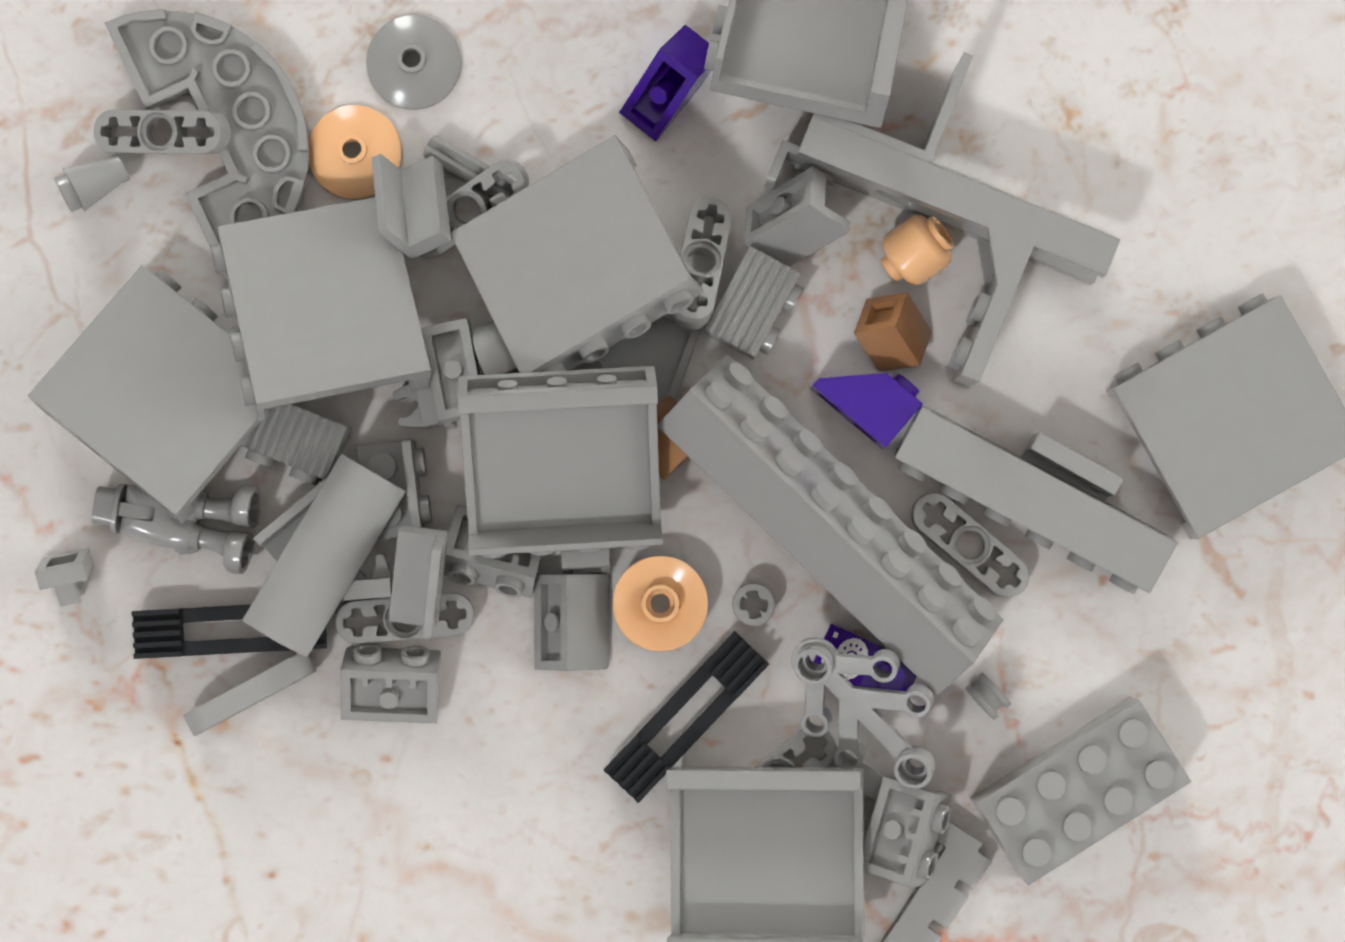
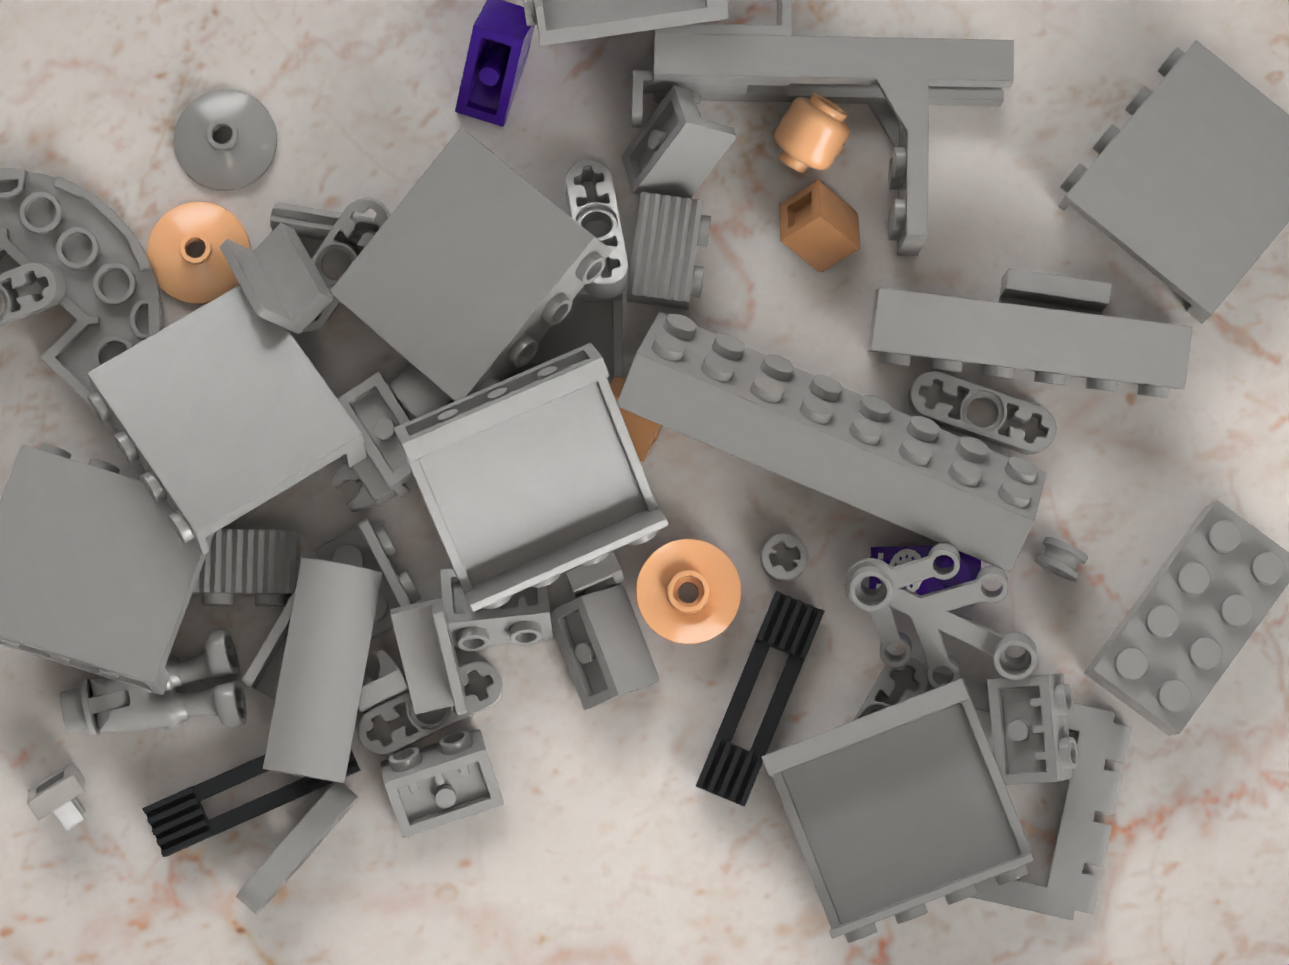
camera: 20 degrees left, 5 degrees down
(871, 403) = (824, 305): dark purple slope -> none

